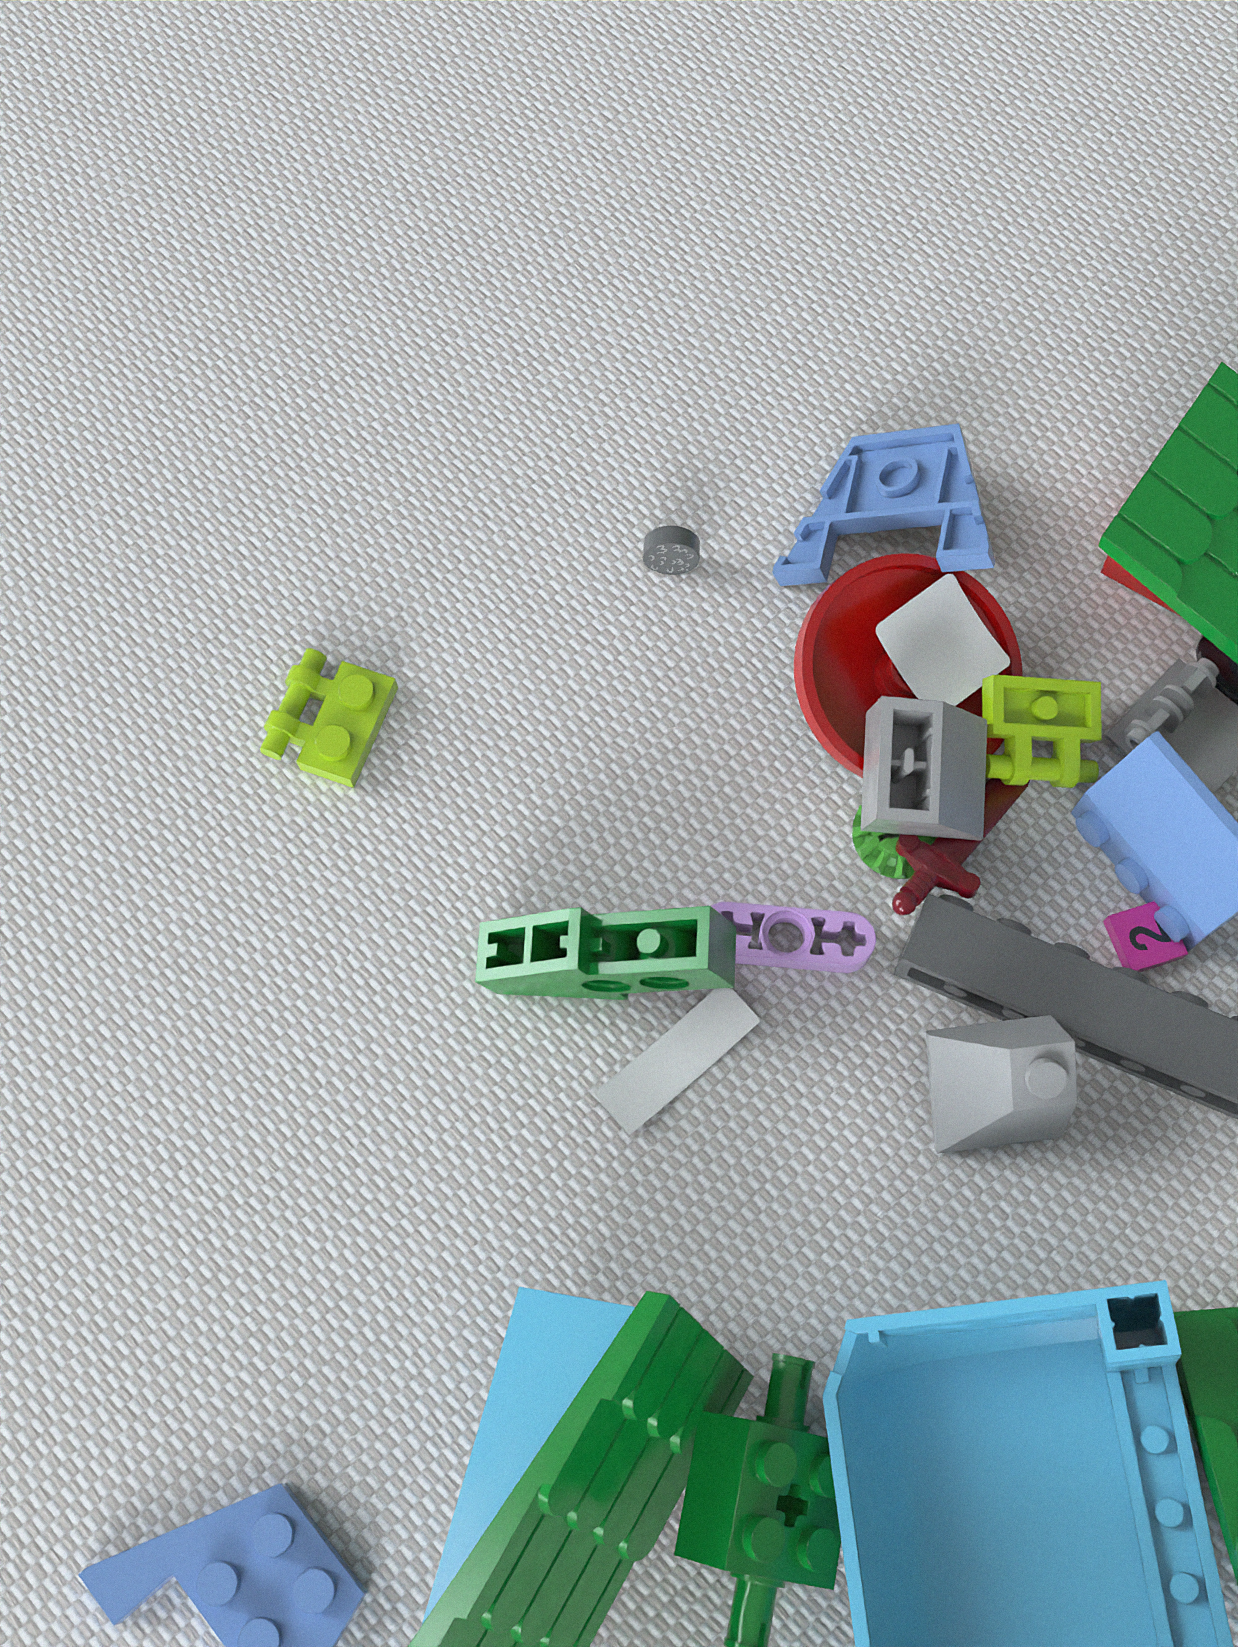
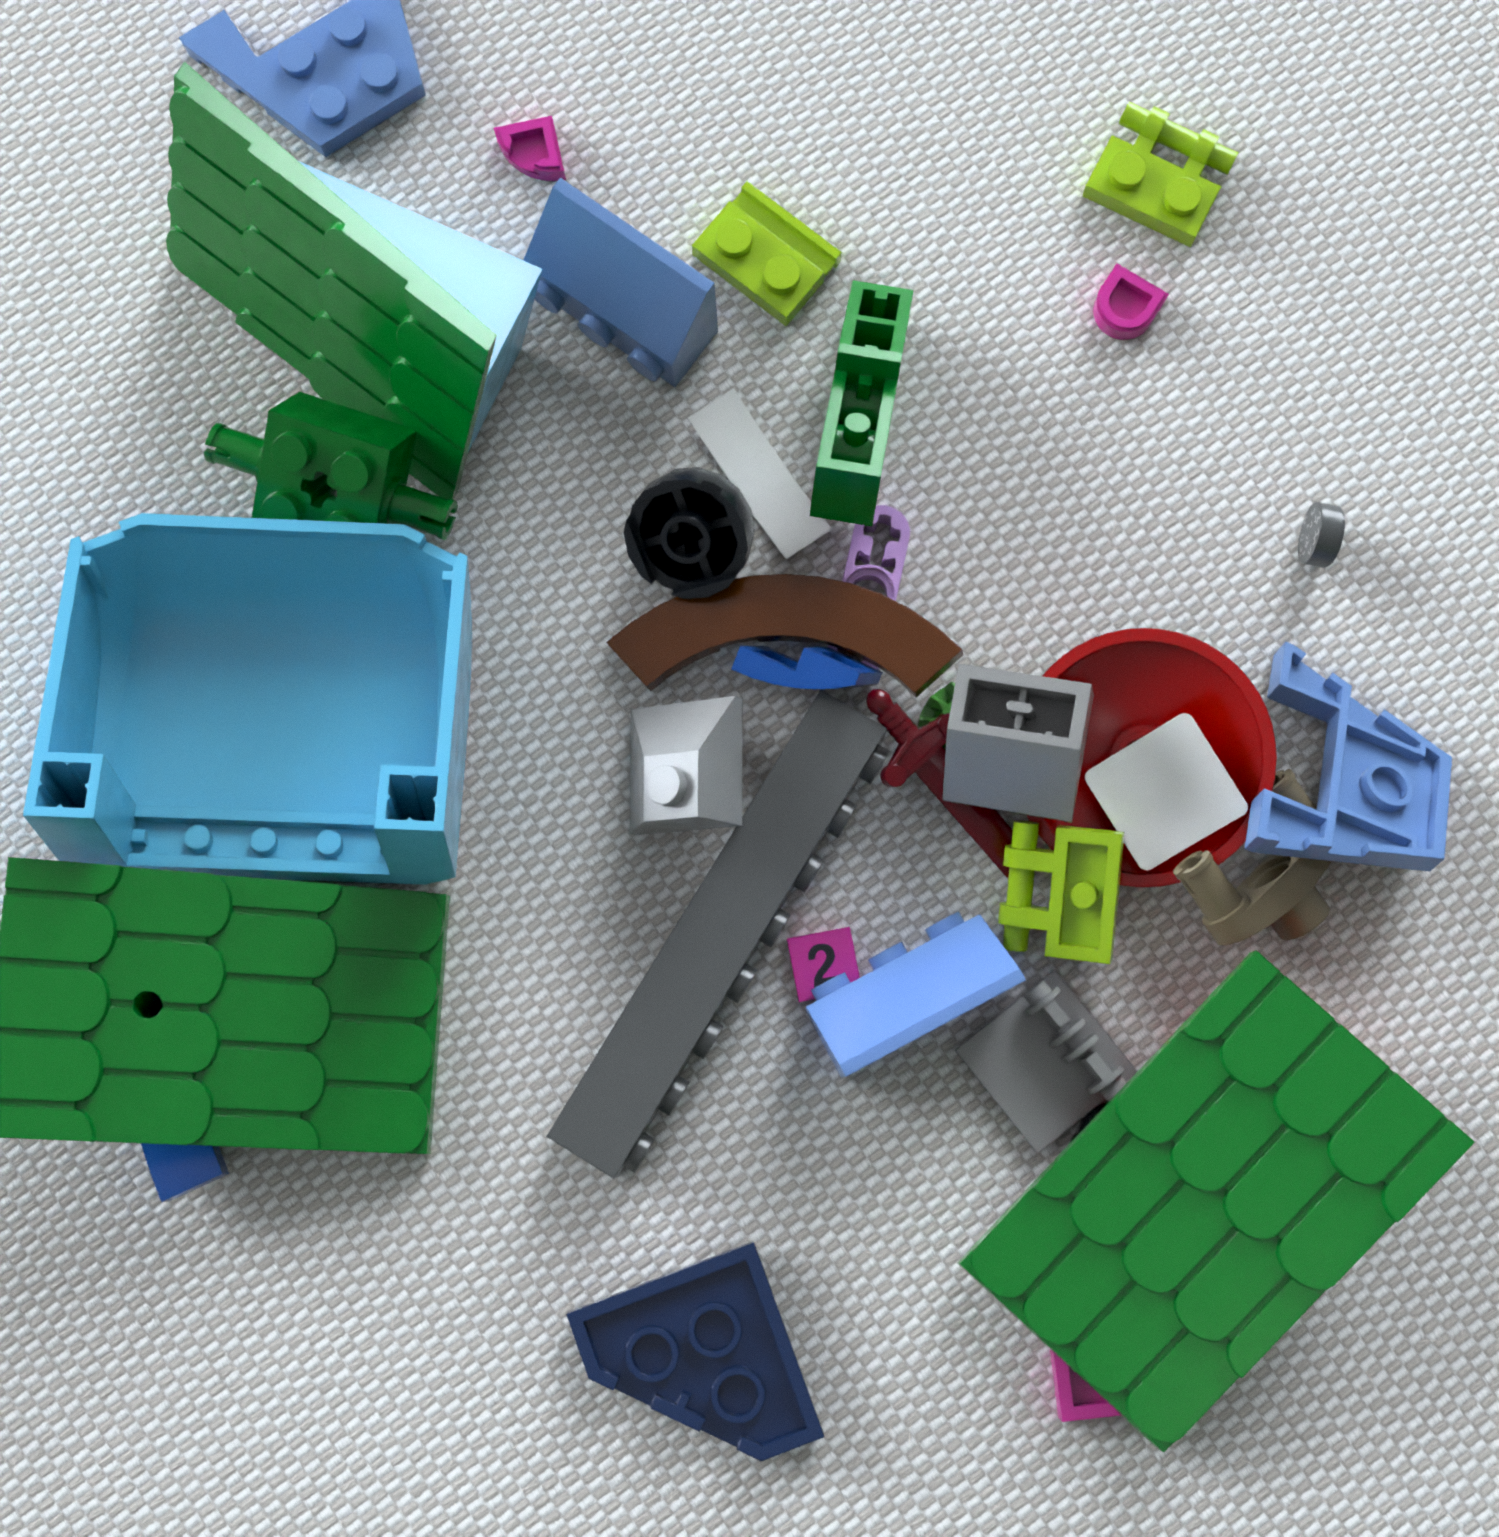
camera: 100 degrees right, 10 degrees up
(344, 1345) = (532, 148): none -> dark pink tile
(443, 1080) = (766, 253): none -> lime plate
(463, 735) = (1127, 304): none -> dark pink tile
(510, 1215) = (621, 286): none -> medium blue slope
(763, 1105) = (690, 532): none -> black cylinder
(822, 1016) = (788, 610): none -> reddish brown tile
(887, 955) = (815, 669): none -> blue slope
(1021, 570) = (1274, 894): none -> dark tan connector

